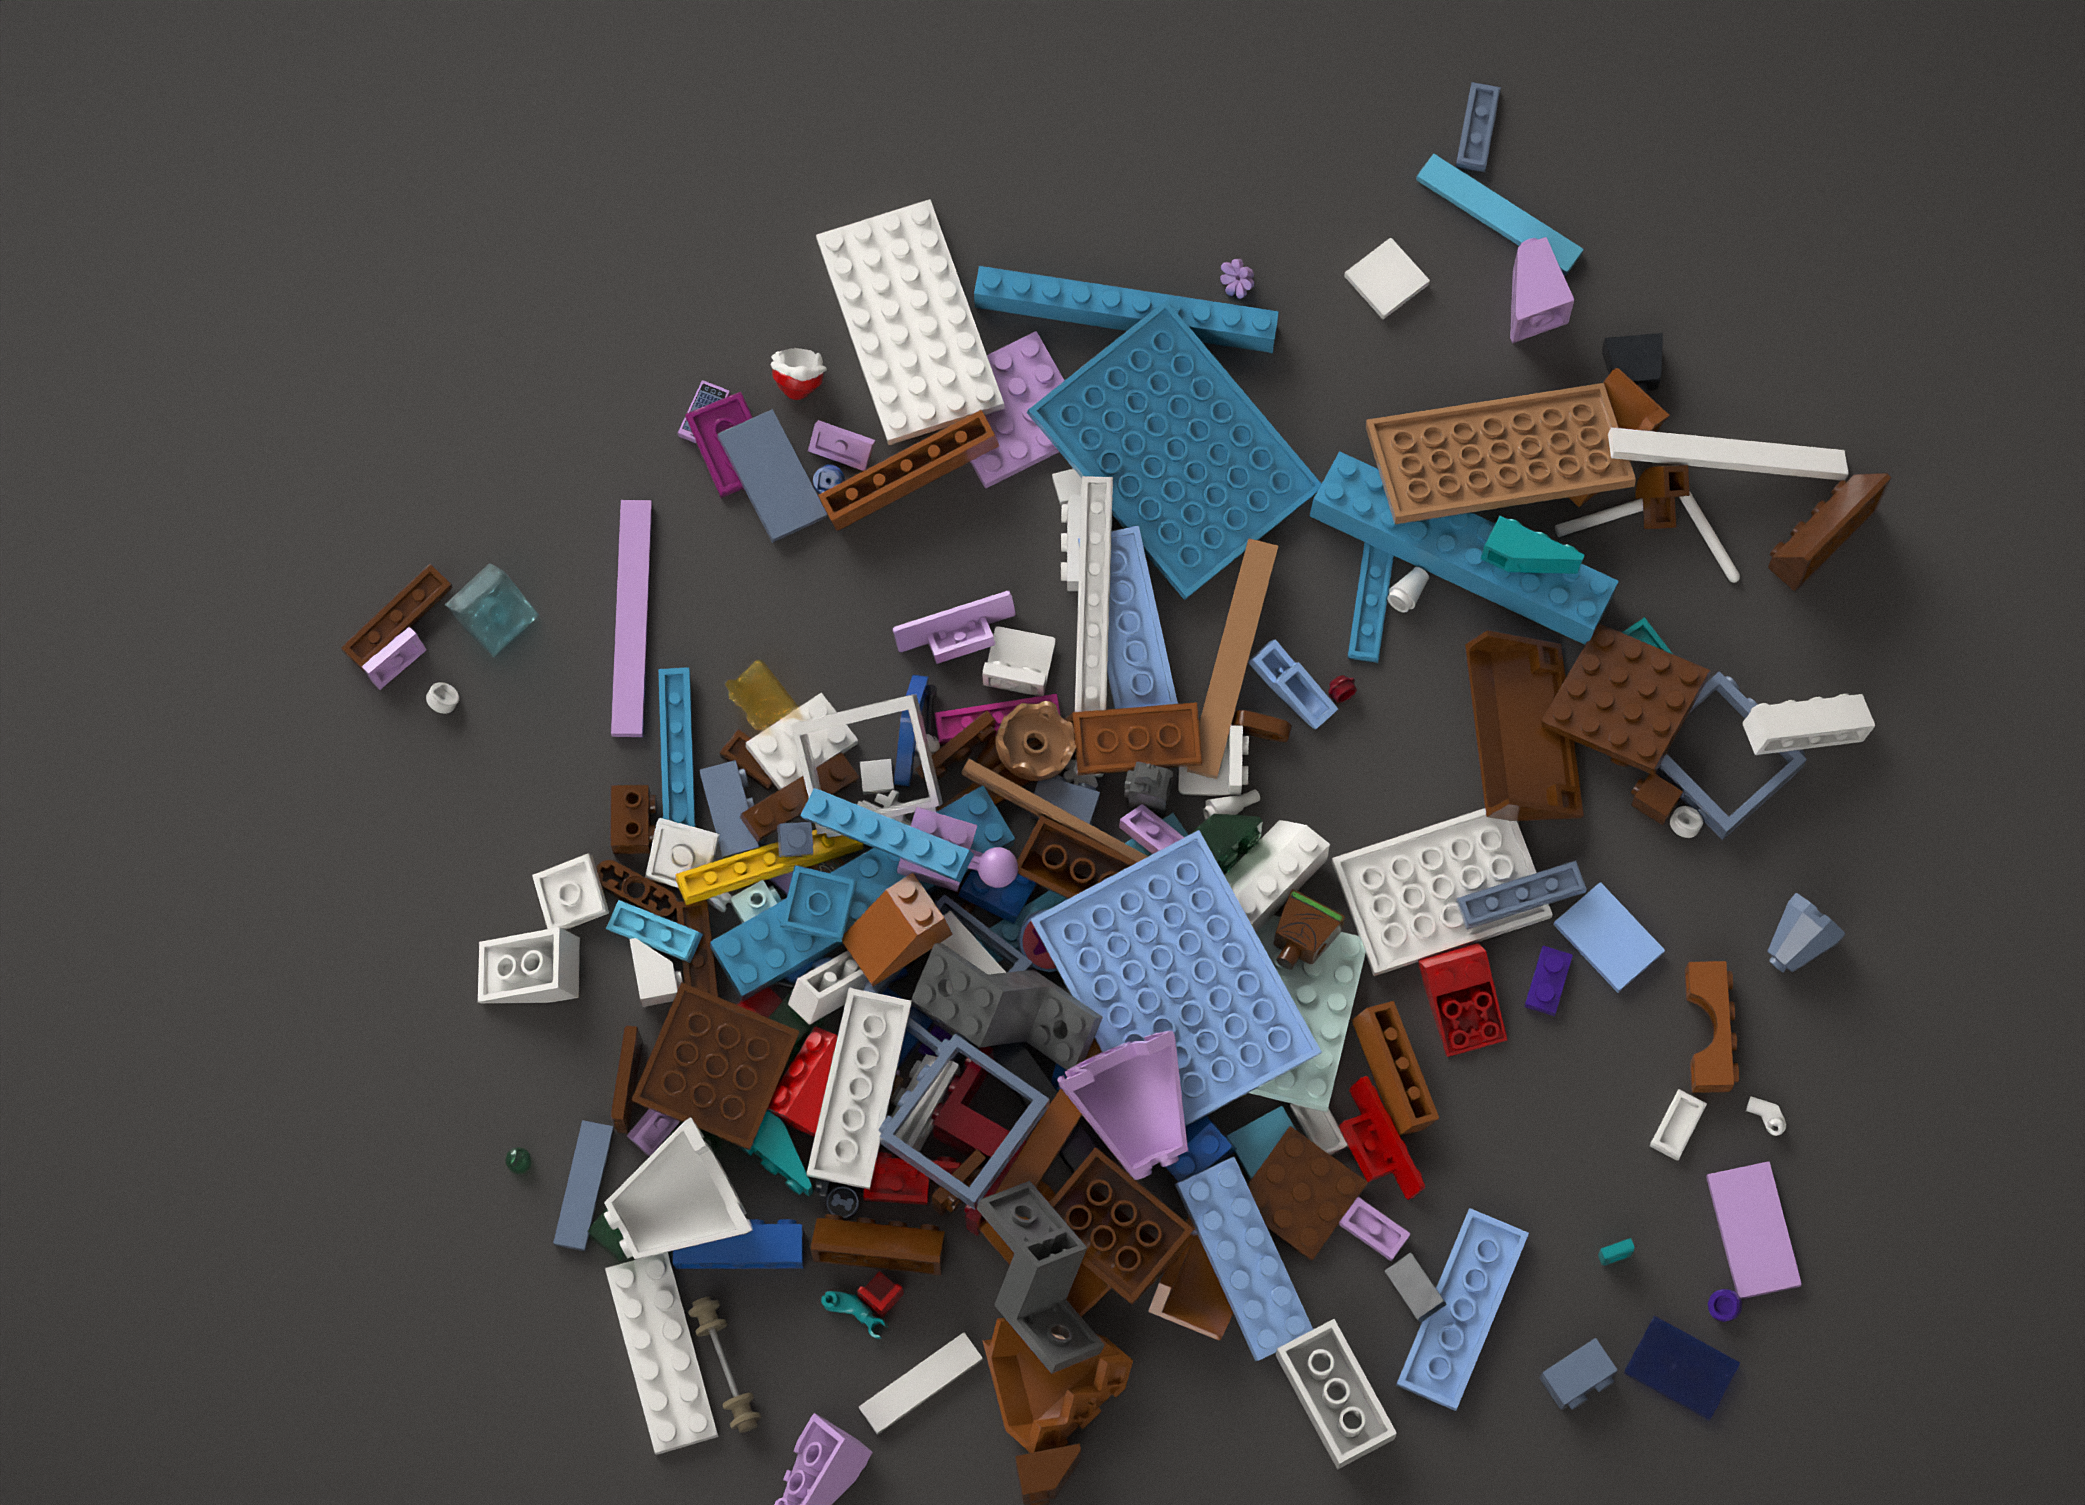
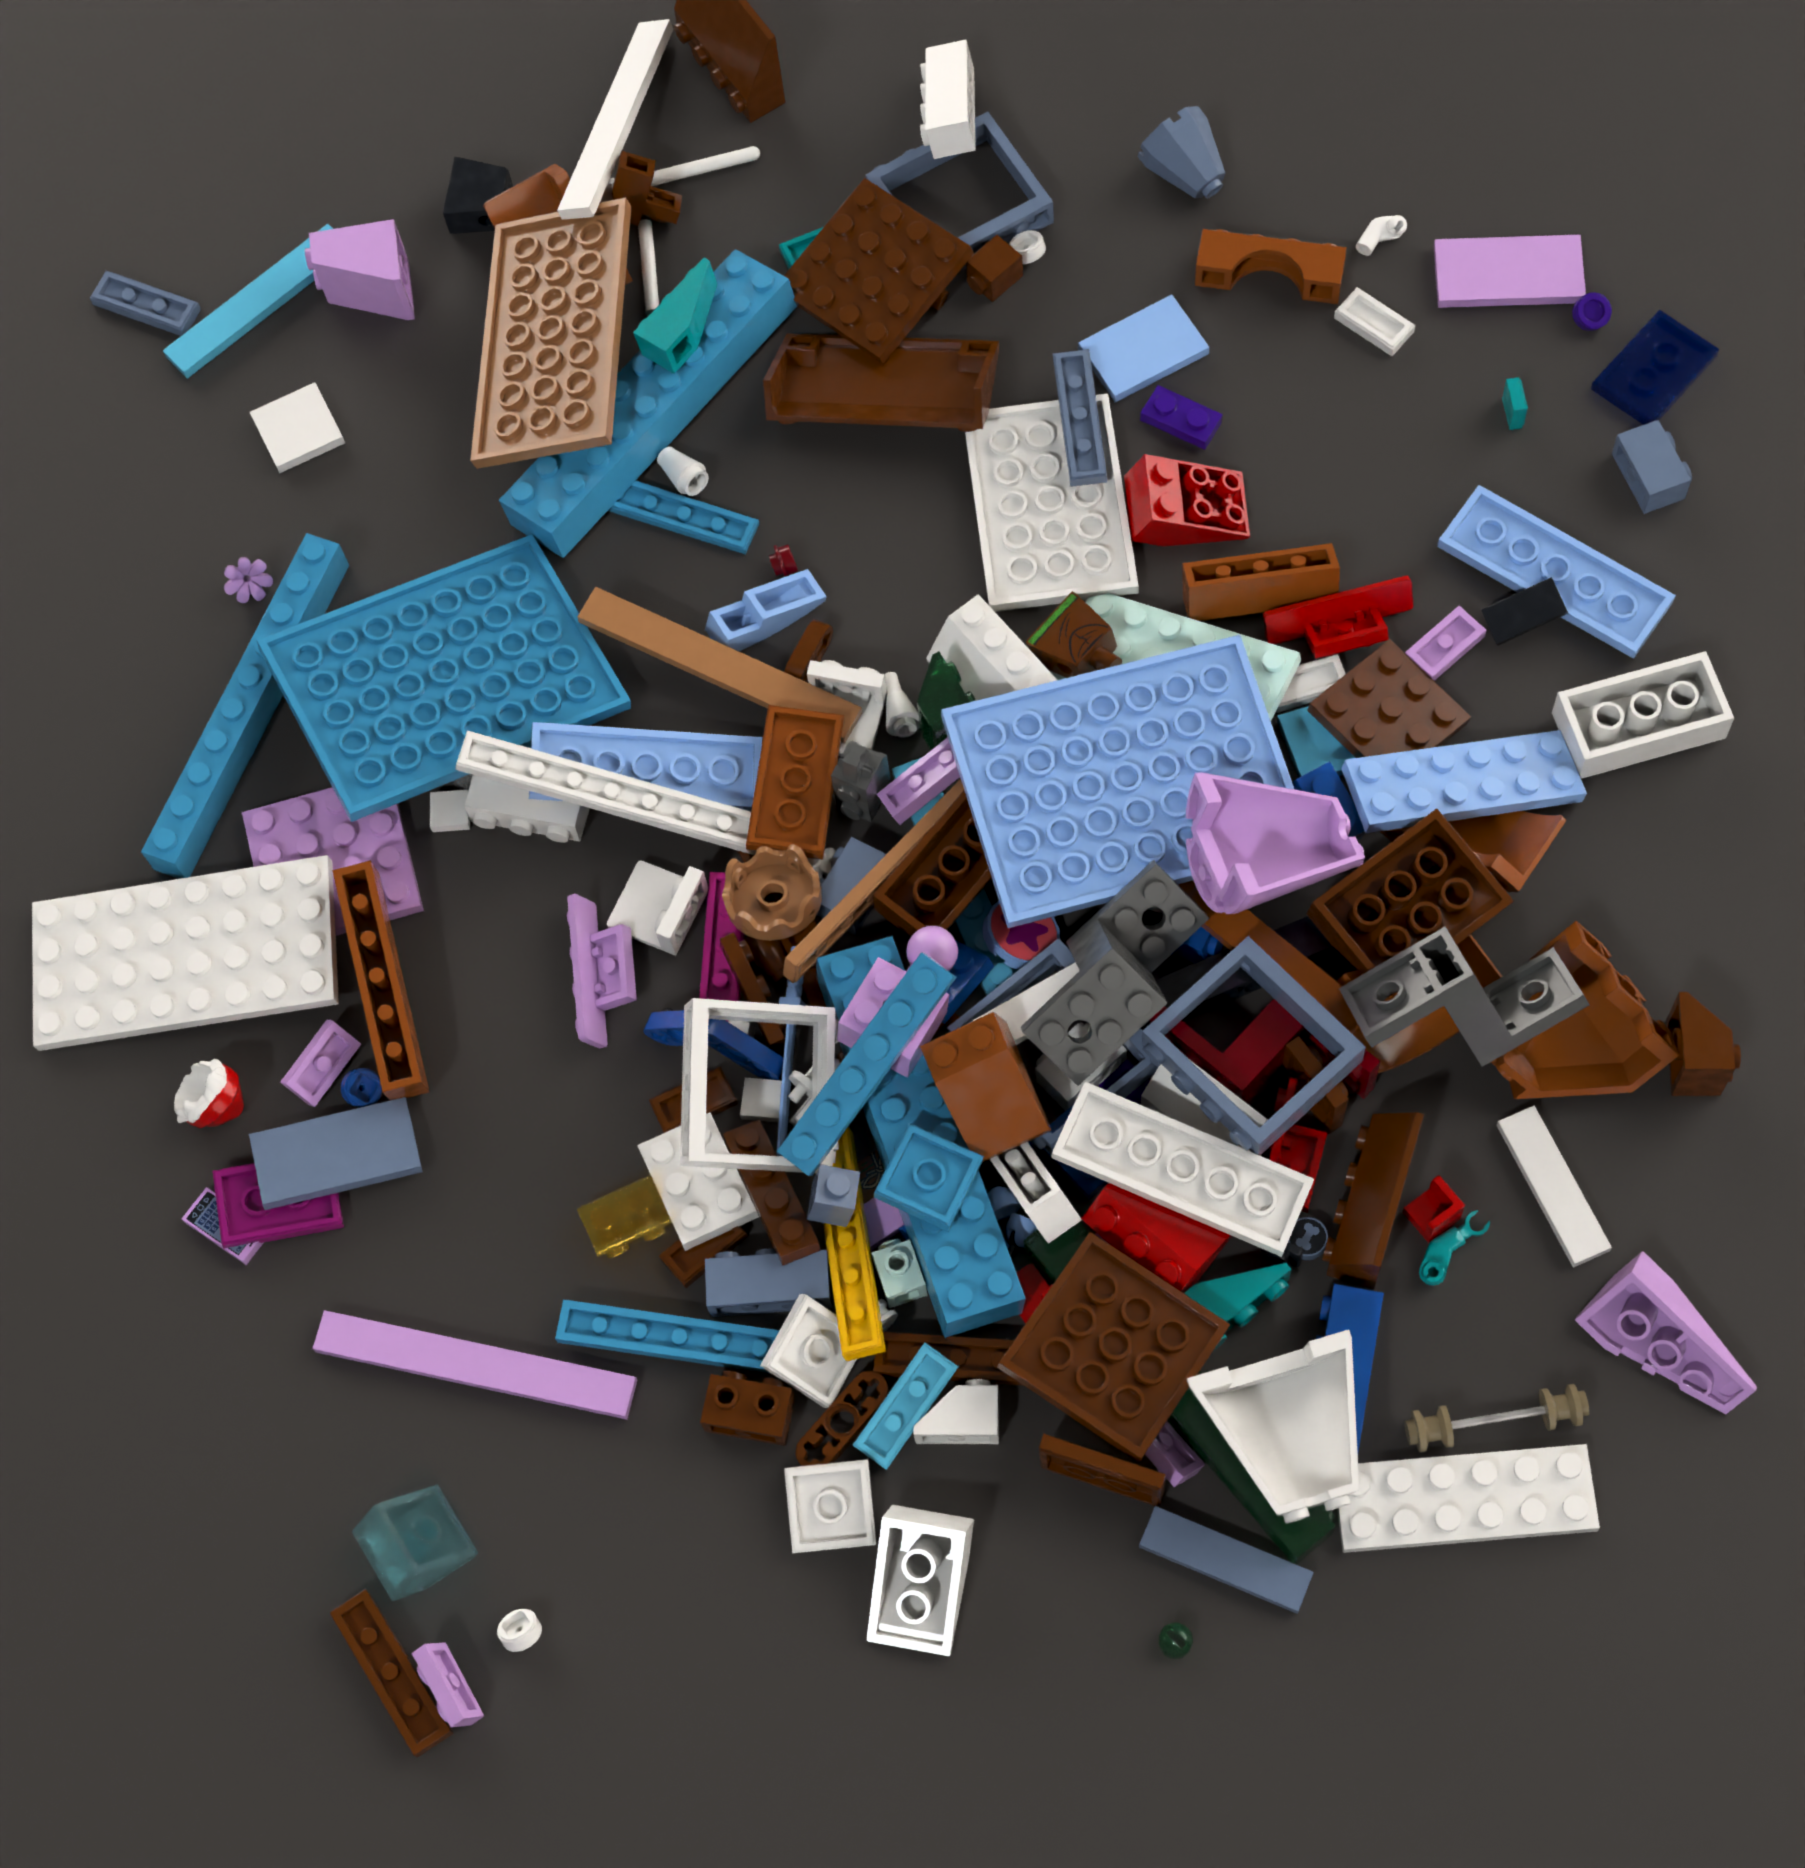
camera: 70 degrees left, 5 degrees down
(872, 732) = (718, 1099): none -> reddish brown tile
(953, 780) = (792, 997): none -> light blue sword

